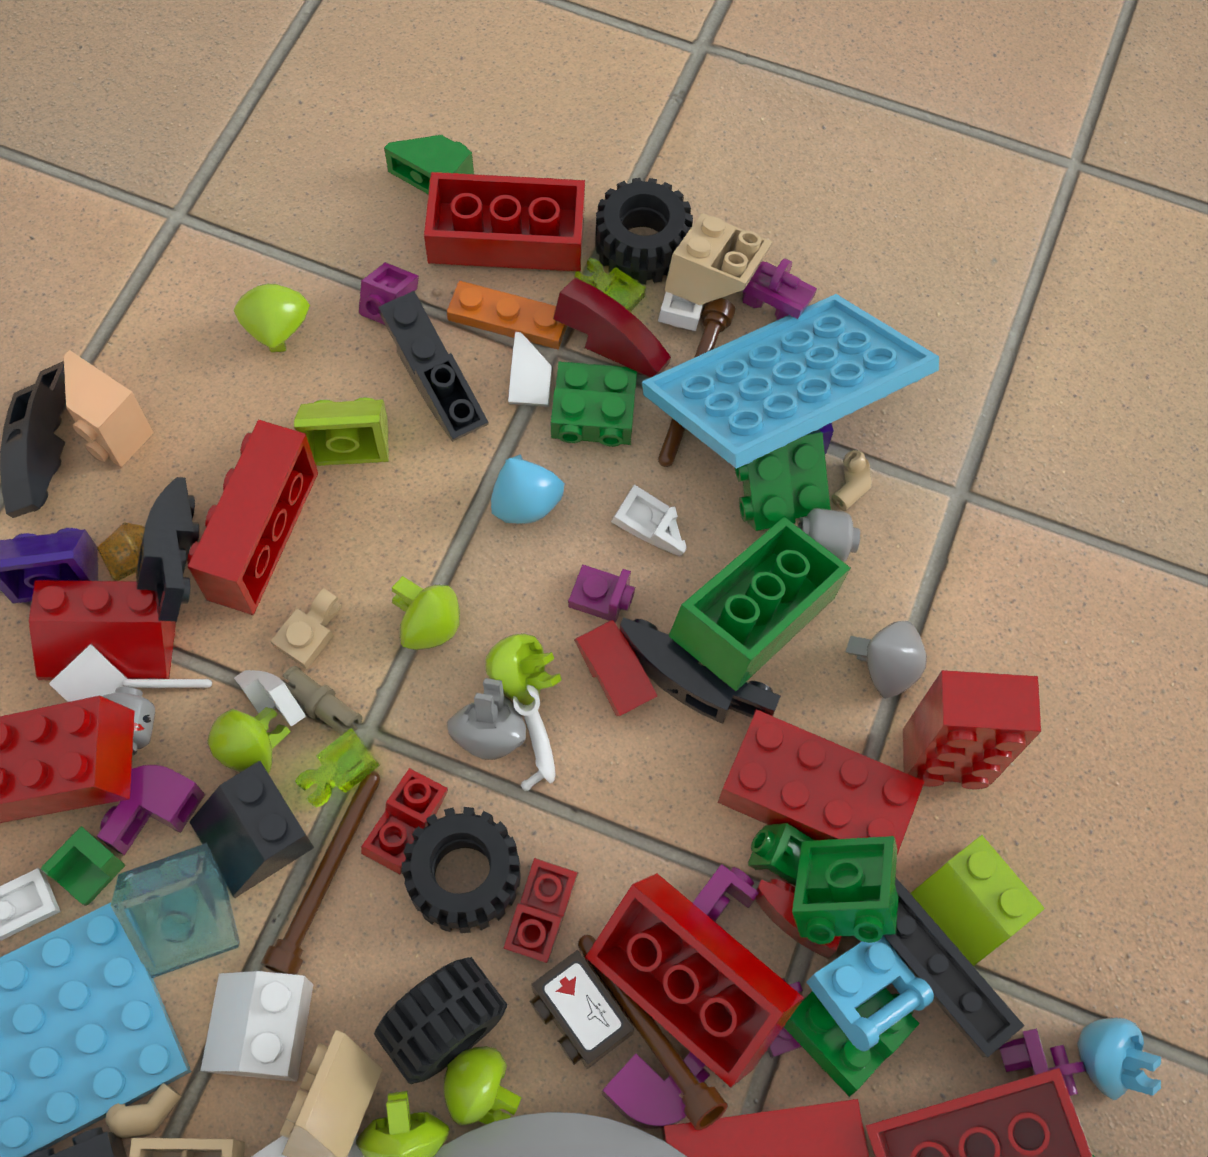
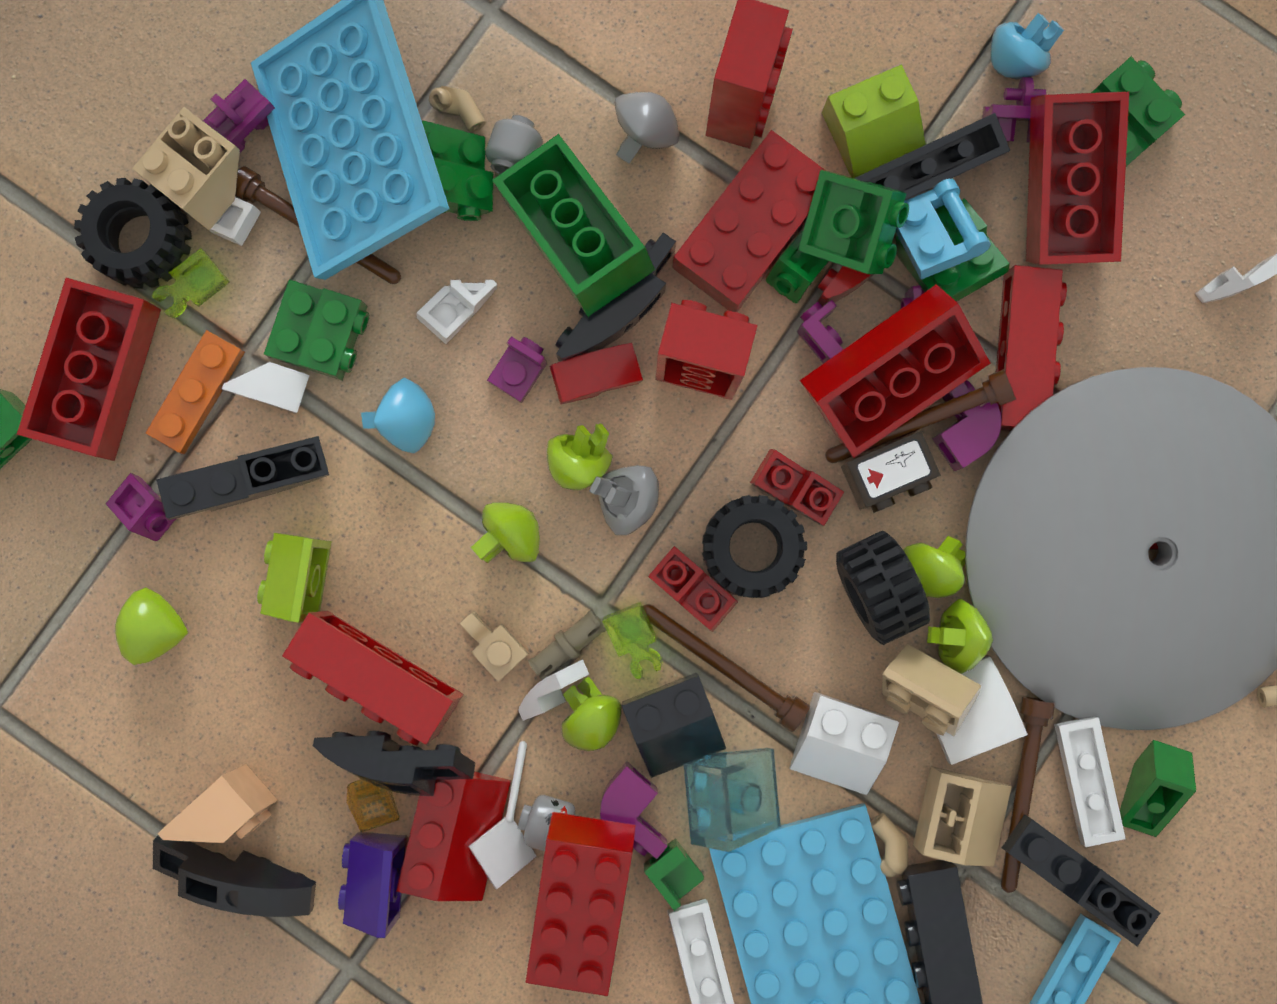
camera: 75 degrees left, 20 degrees up
(539, 740) = (668, 456): white piece -> none
(610, 328) = (242, 293): dark red slope -> none
(660, 748) = (705, 349): none -> red brick

